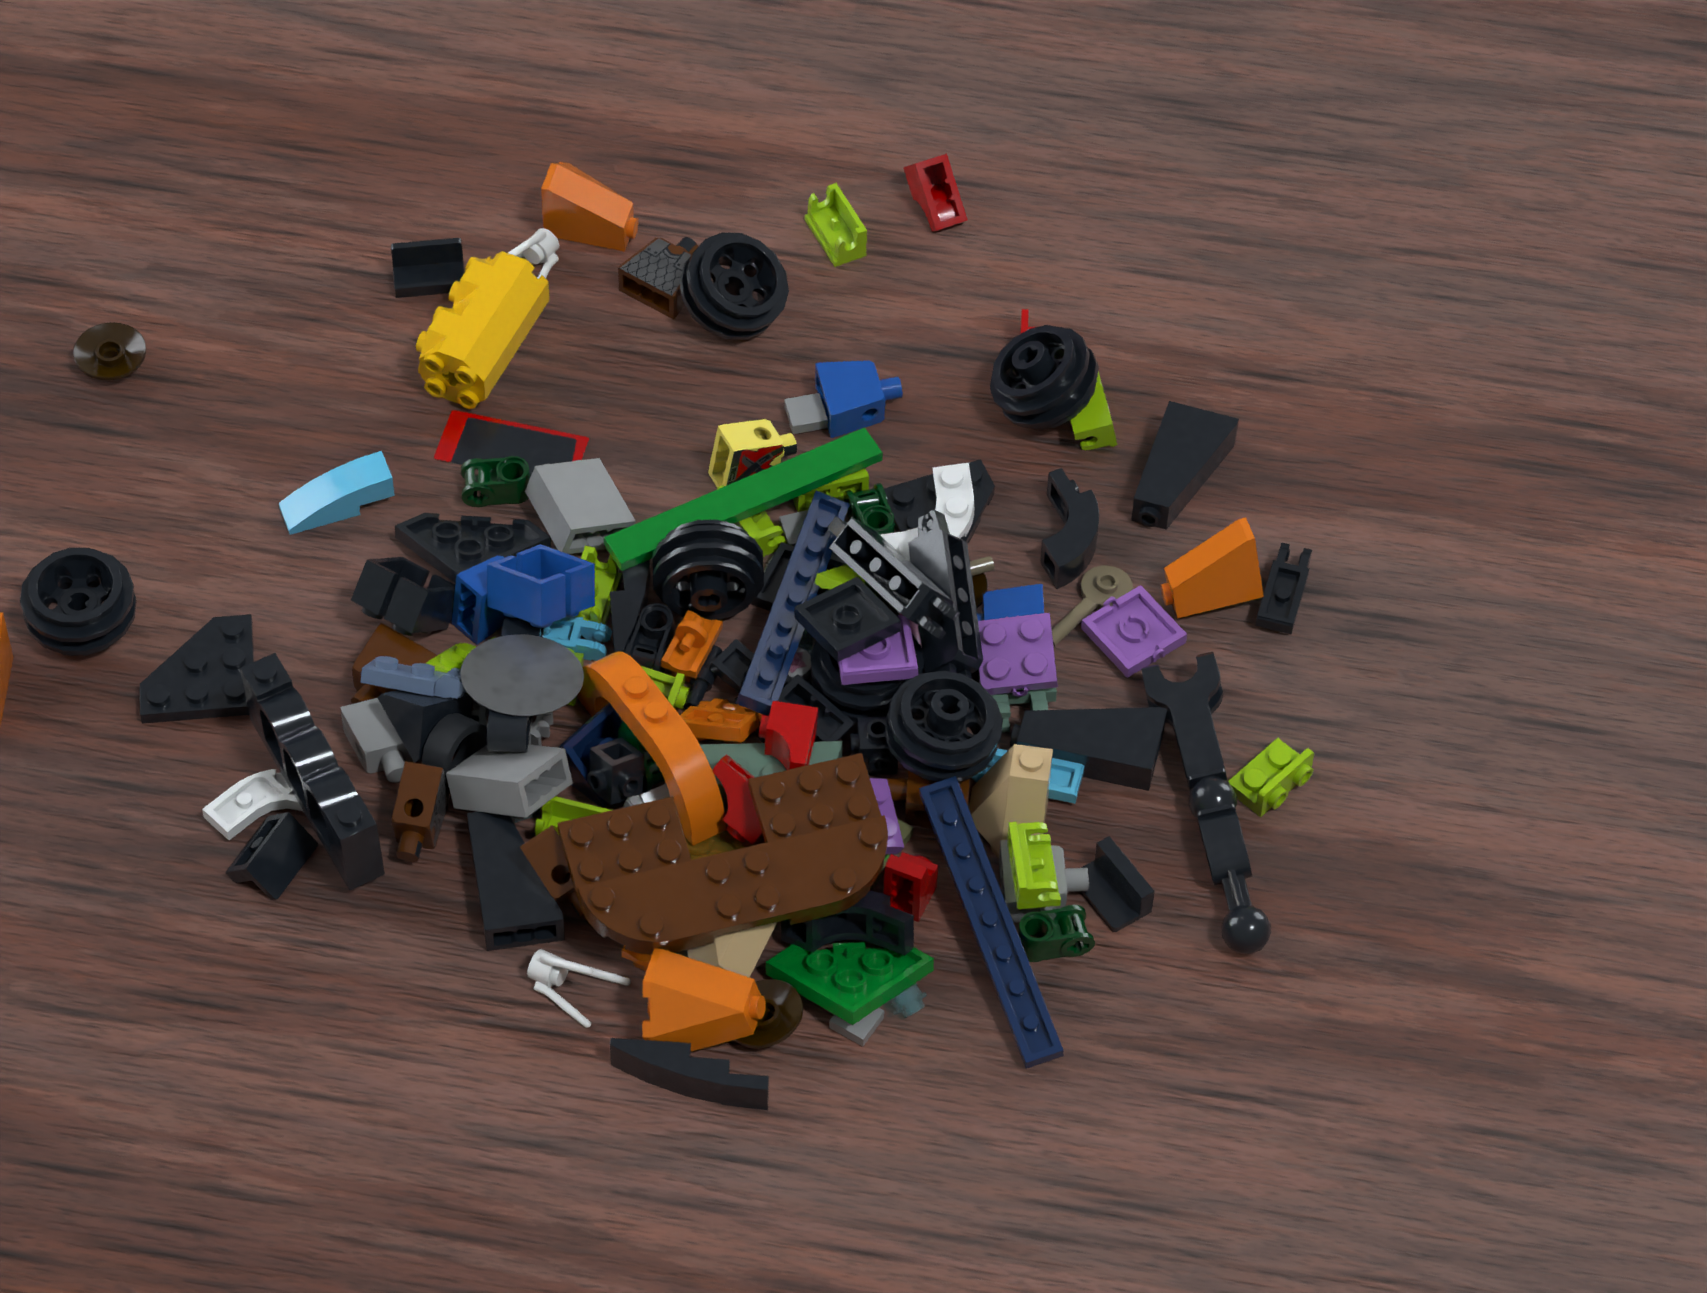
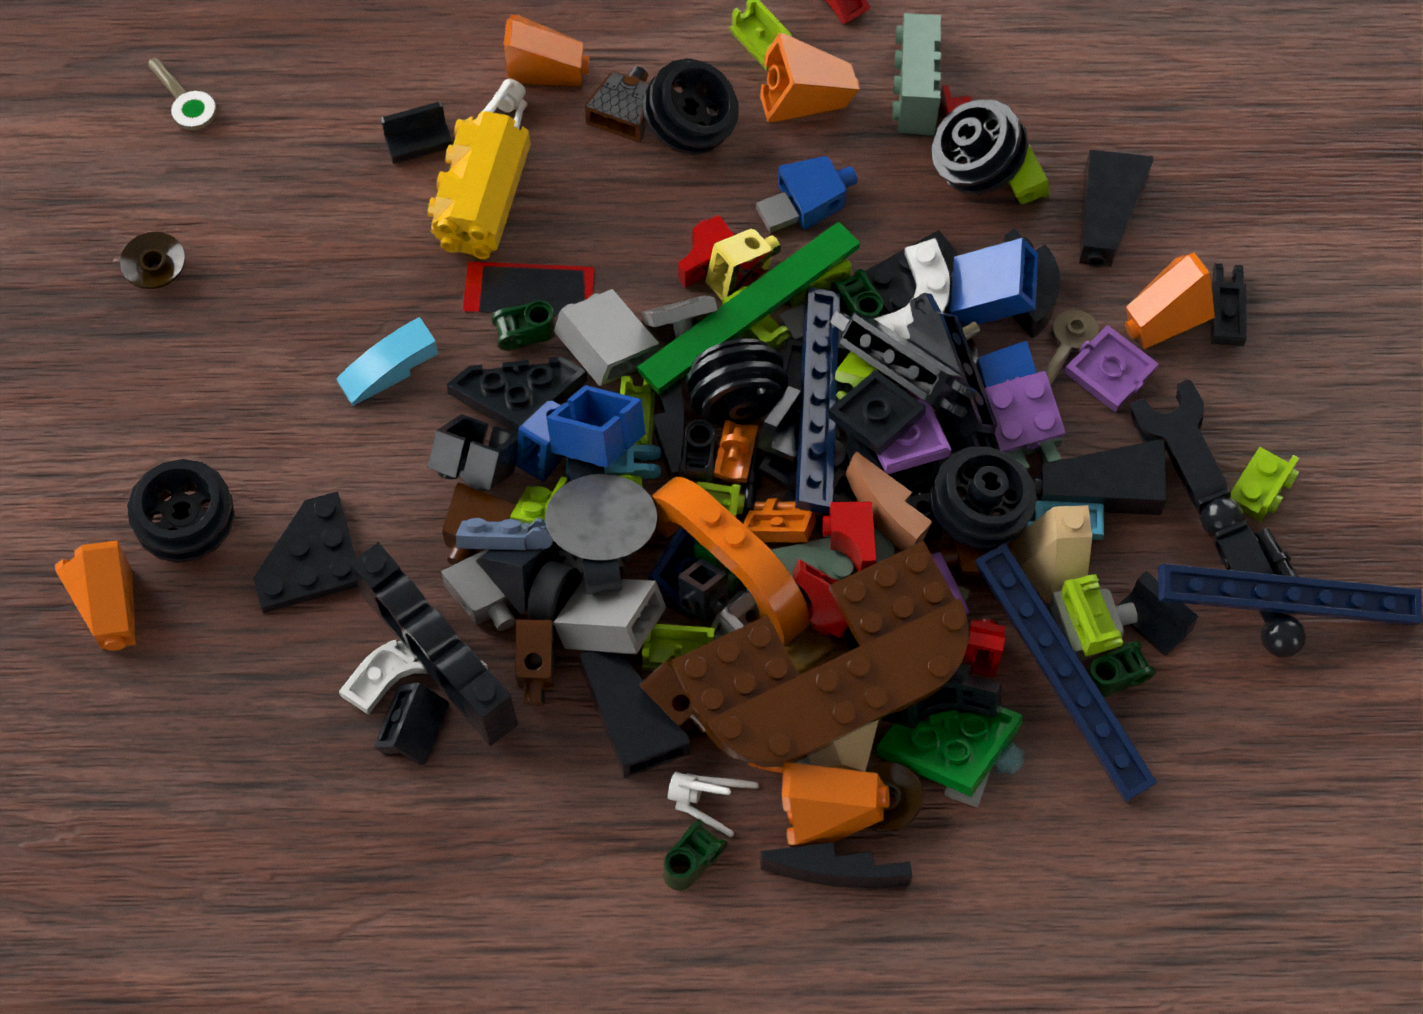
camera: 10 degrees left, 10 degrees up
(188, 206) = (191, 109): none -> piece
(544, 1032) = (697, 851): none -> dark green piece
(666, 494) = (679, 313): none -> light grey tile
(697, 450) = (704, 236): none -> red arch
(744, 622) = (782, 427): none -> black panel
(838, 714) = (889, 499): none -> nougat slope
(871, 281) = (804, 80): none -> orange slope
(1000, 293) = (919, 74): none -> sand green wedge
(1022, 518) = (994, 282): none -> brick
(1261, 884) = (1289, 594): none -> dark blue plate
(1264, 857) = (1277, 559): none -> black pin

